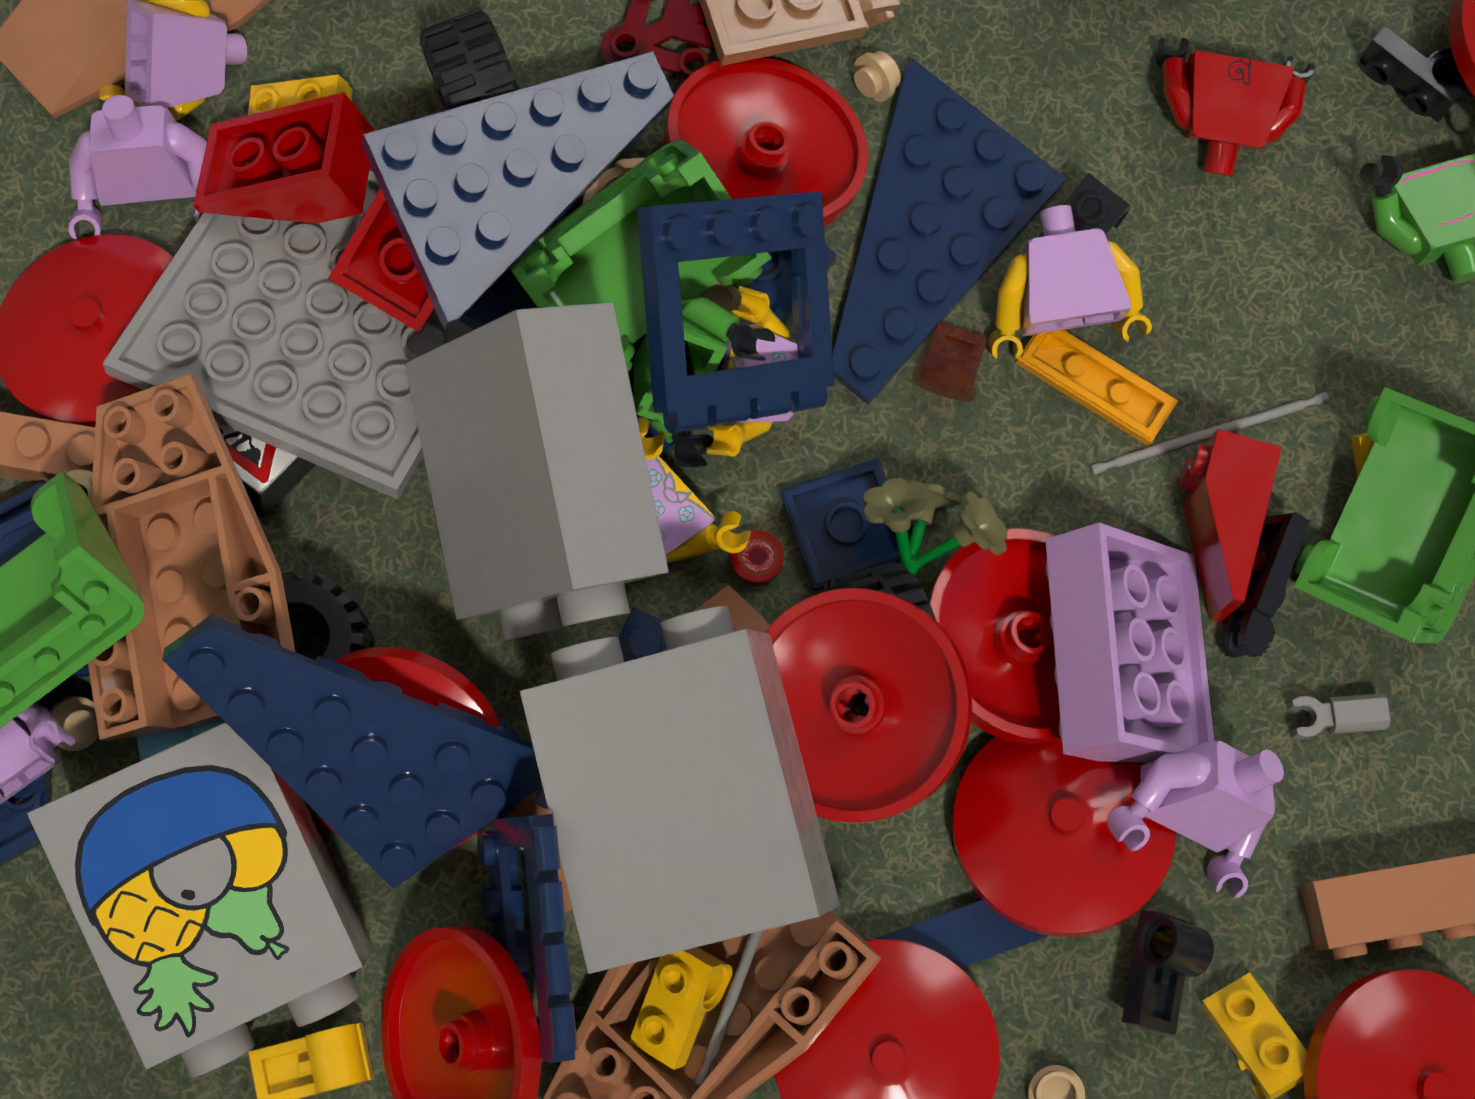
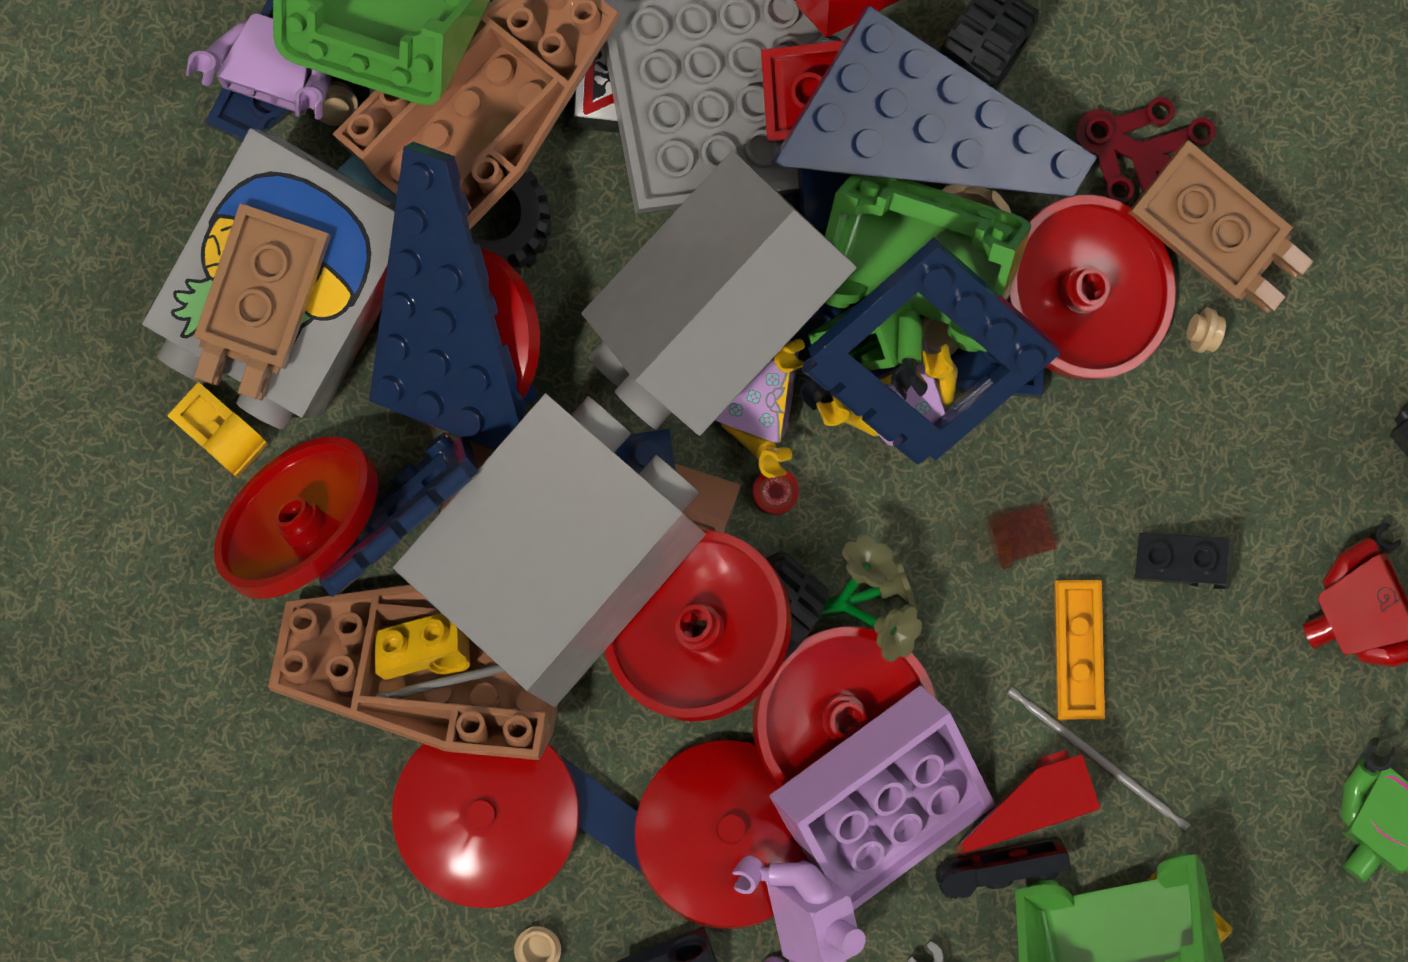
camera: 55 degrees right, 5 degrees up
(207, 925) = (258, 297): none -> medium nougat tile
(832, 523) = (830, 523): dark blue tile -> none
(939, 218) = (1129, 452): dark blue wing -> none
(1067, 284) = (1129, 578): lavender torso -> none

